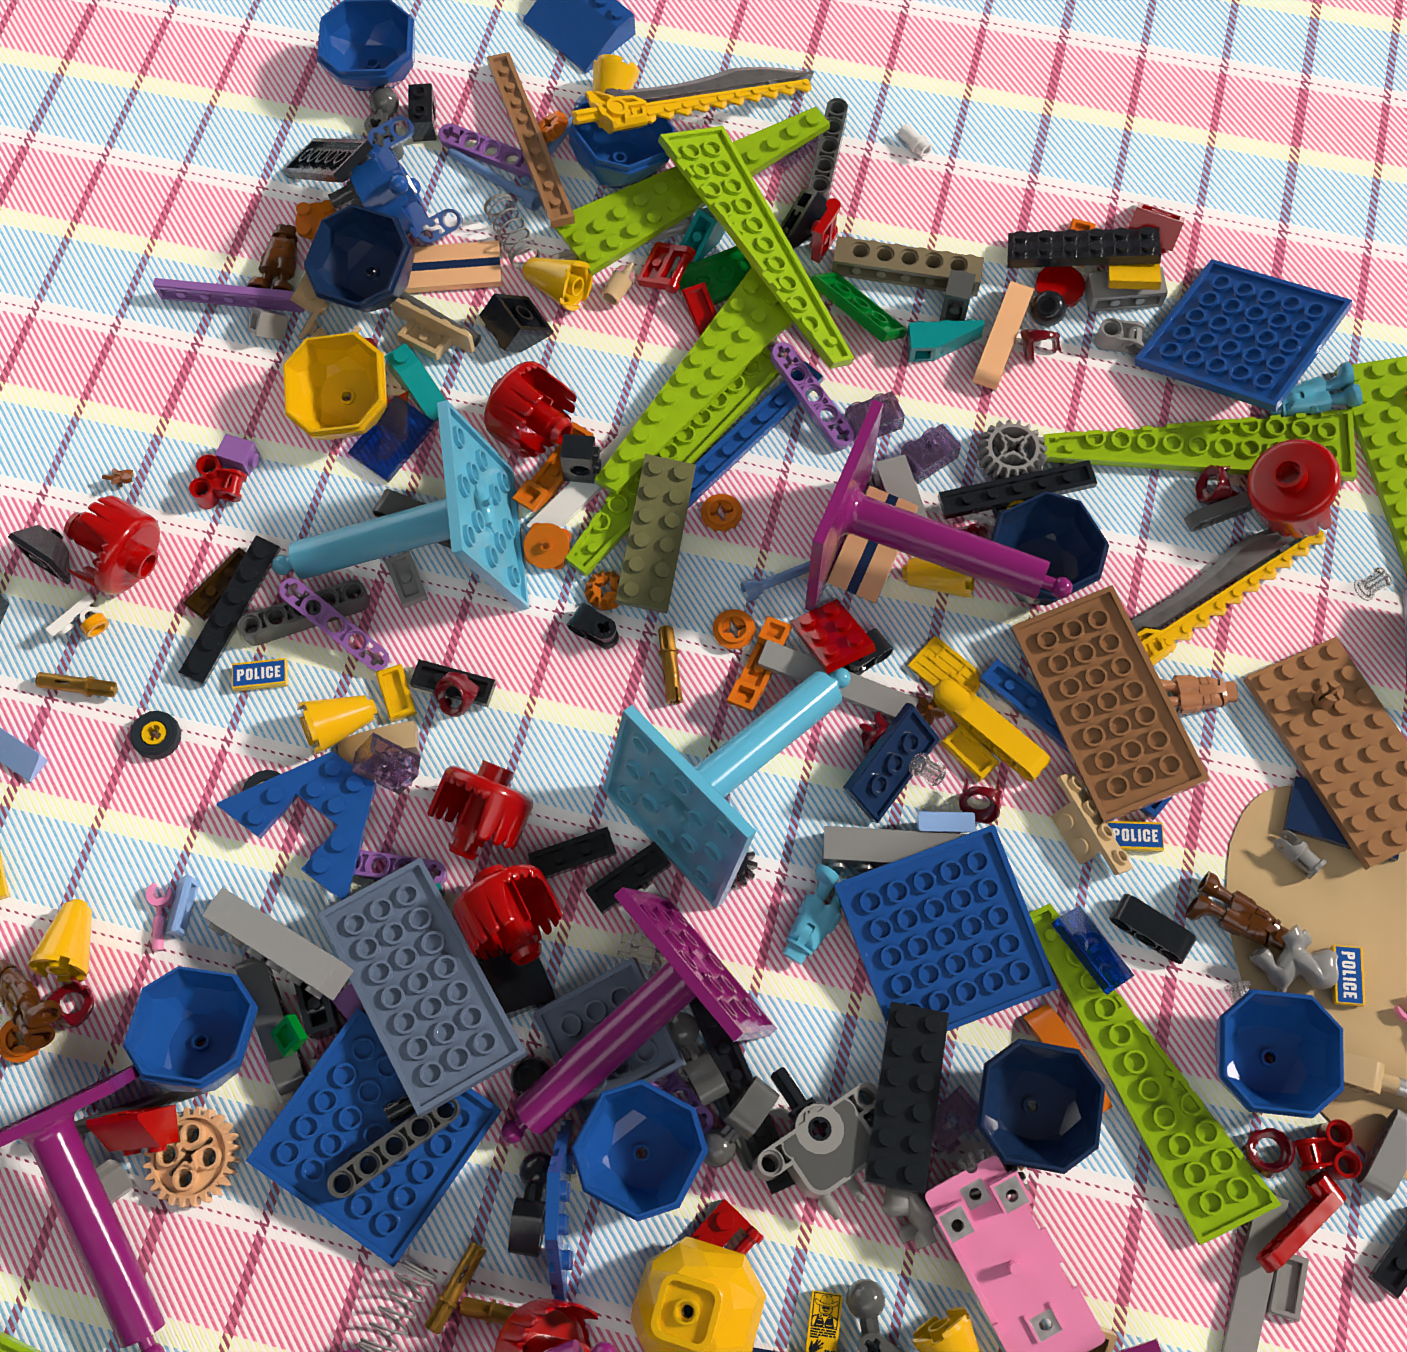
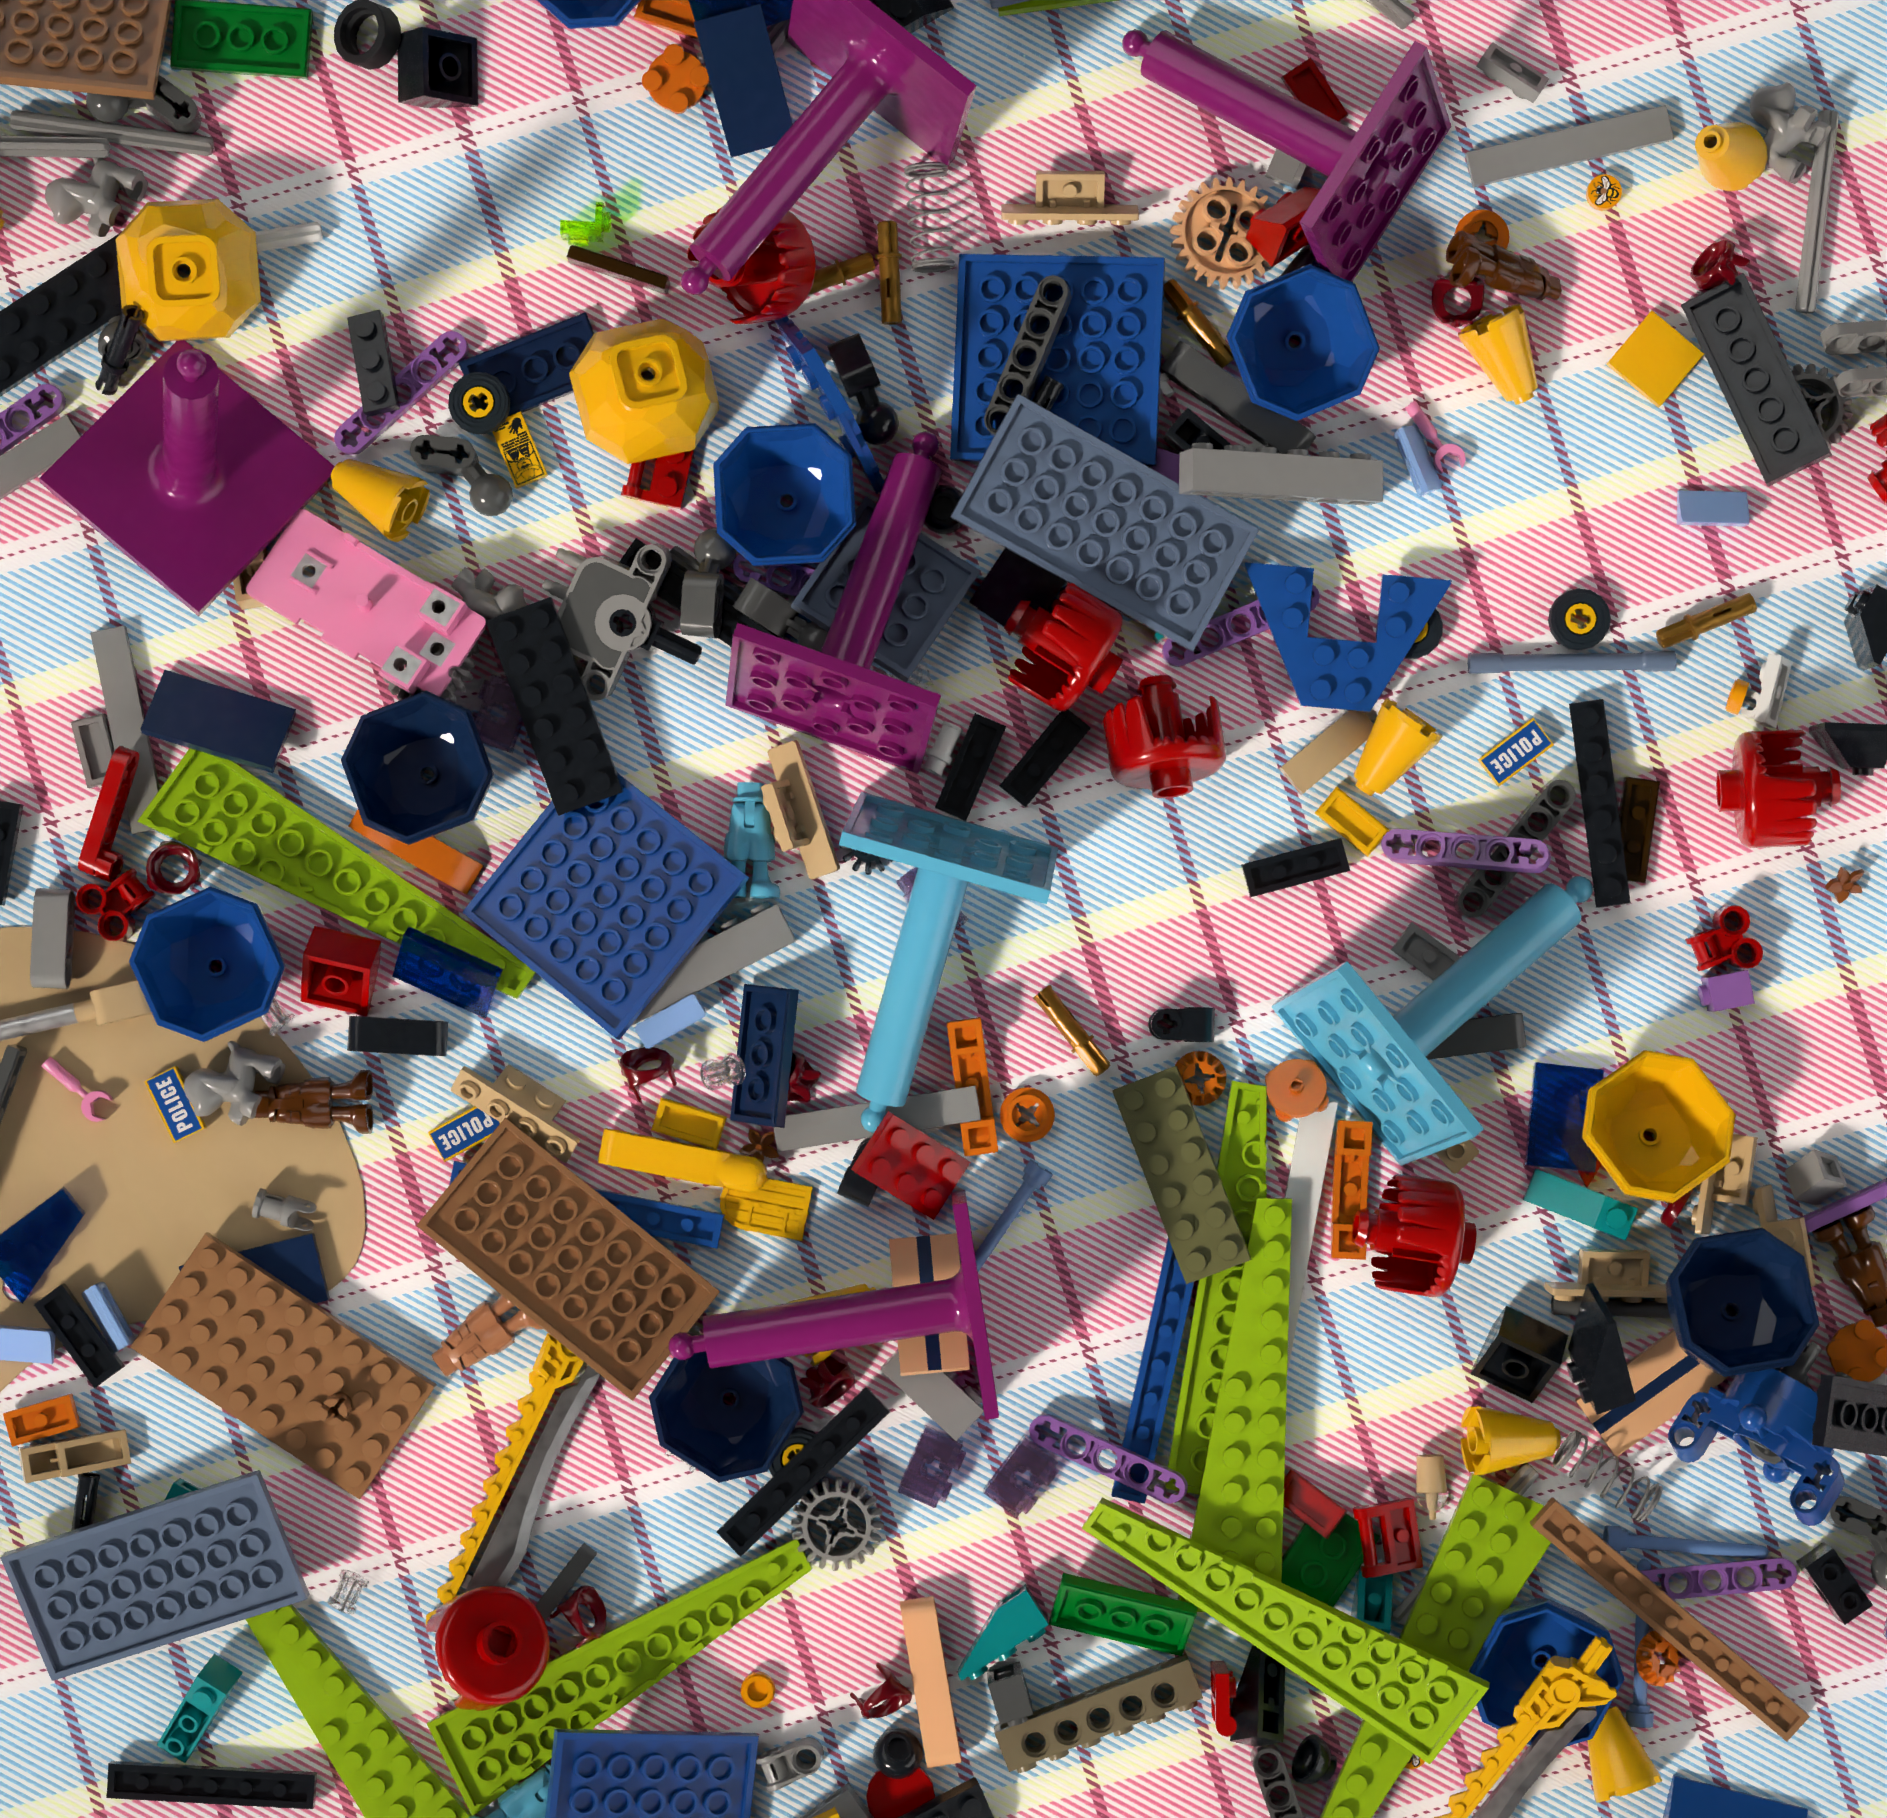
camera: 150 degrees right, 20 degrees up
(53, 1235) = (1312, 89): none -> red tile
(227, 737) = (1496, 663): none -> sand blue piece
(258, 1097) = (1198, 323): none -> pearl gold axle
(284, 1259) = (1069, 197): none -> tan bracket
(289, 1035) = (1204, 397): green plate -> none
(386, 763) = (1299, 729): clear purple brick -> none
(466, 287) = (1598, 1356): none -> black slope
(466, 688) = (1274, 865): dark red piece -> none
(580, 458) = (1320, 1209): black brick -> none
(729, 505) = (1124, 1266): orange gear -> none
(769, 919) = (797, 811): none -> tan bracket
(792, 176) = (1313, 1761): none -> black piece
(1118, 389) = (757, 1689): none -> light orange tile
(1172, 1001) = (340, 970): none -> red slope
(1177, 1248) = (218, 721): none -> dark blue tile

